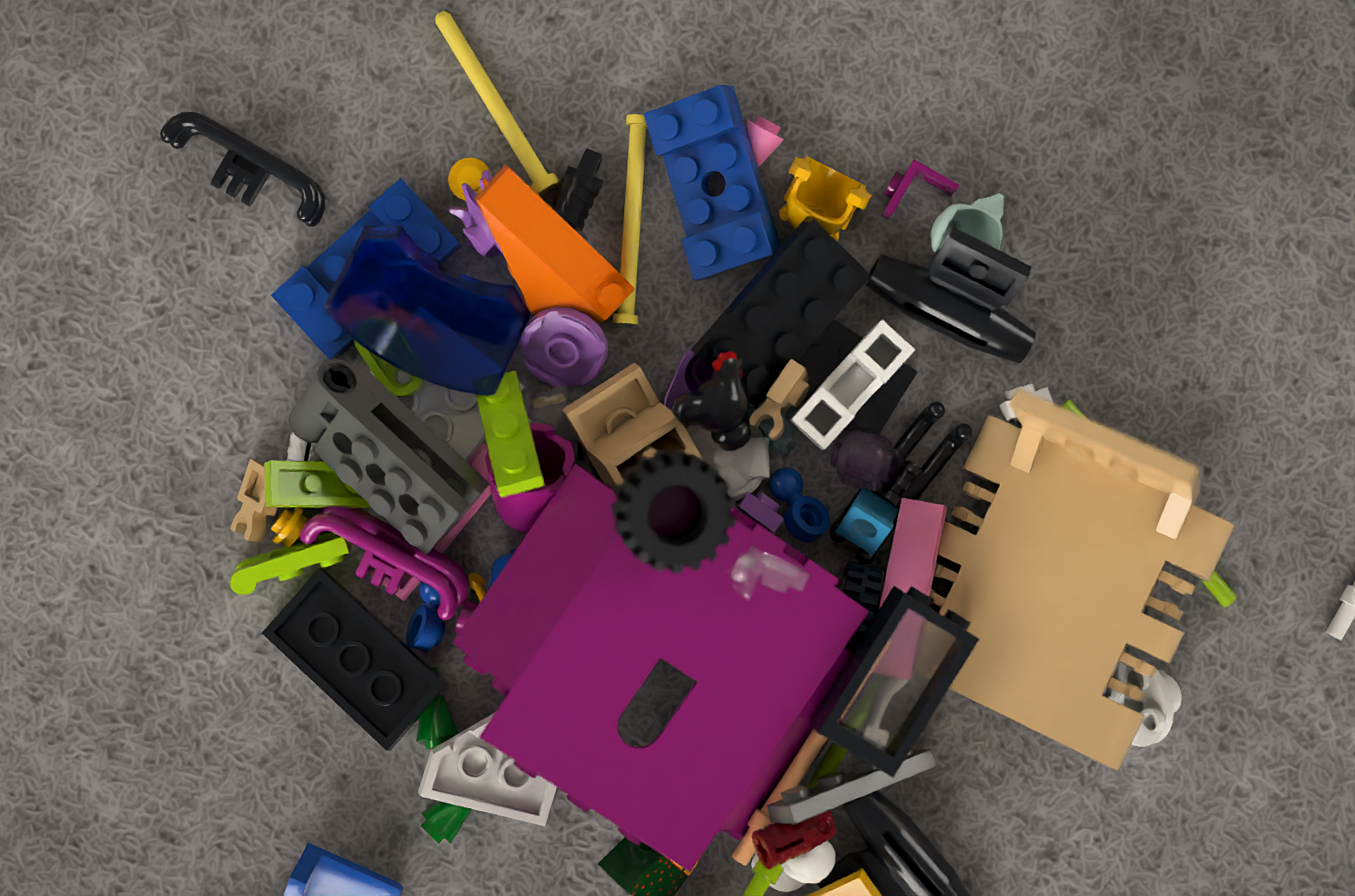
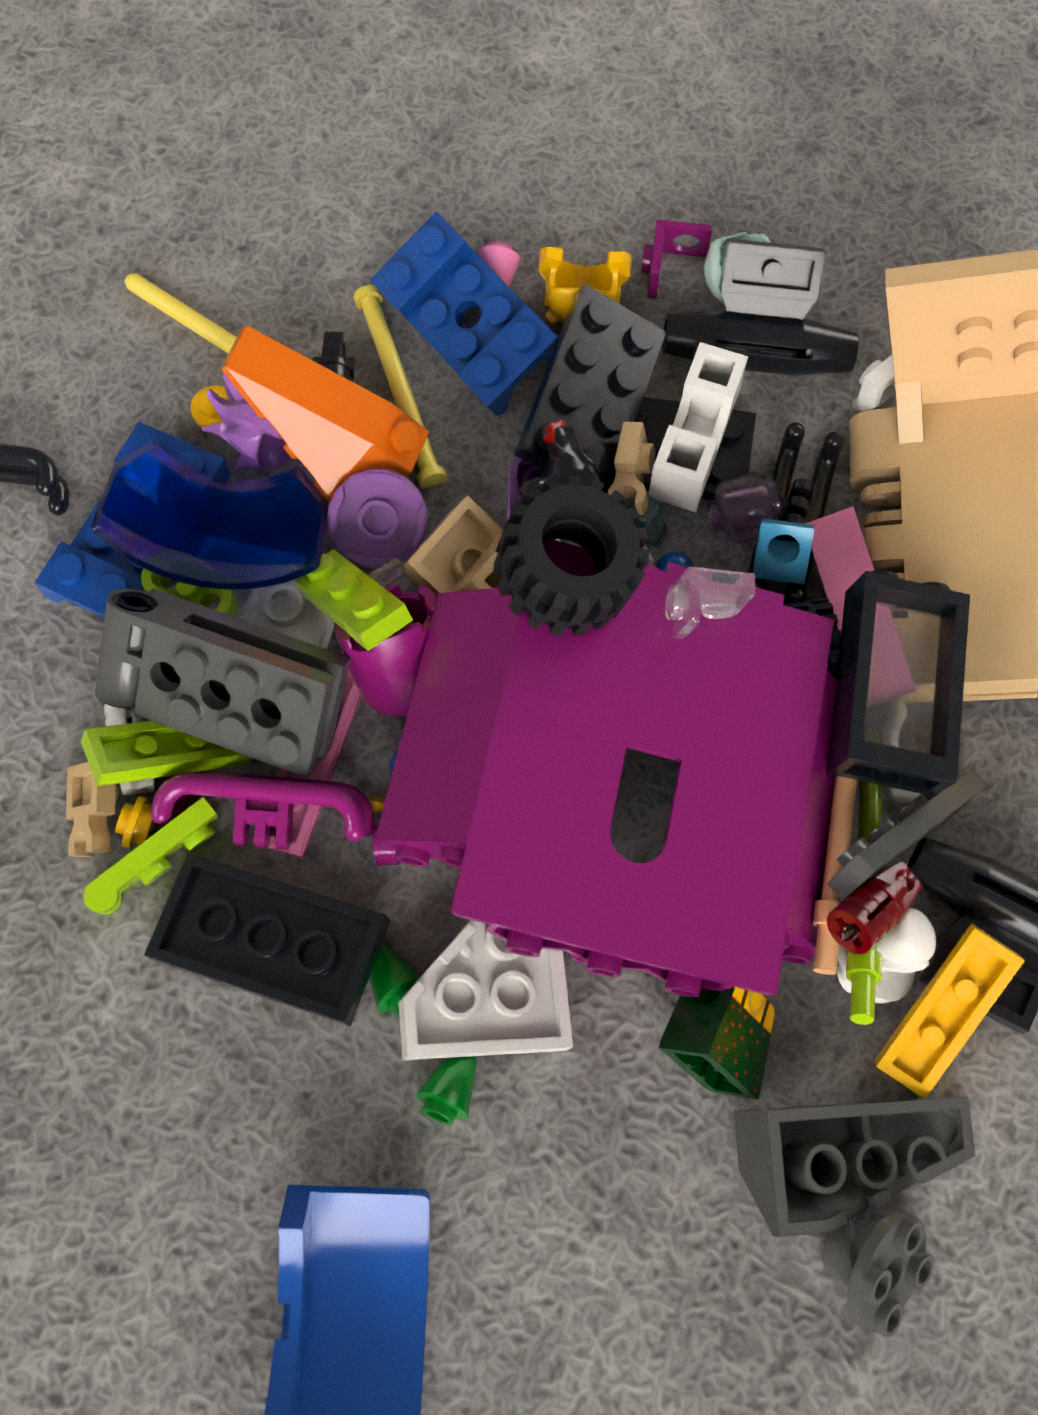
camera: 25 degrees left, 20 degrees down
(426, 626) = (338, 869): blue plate -> none

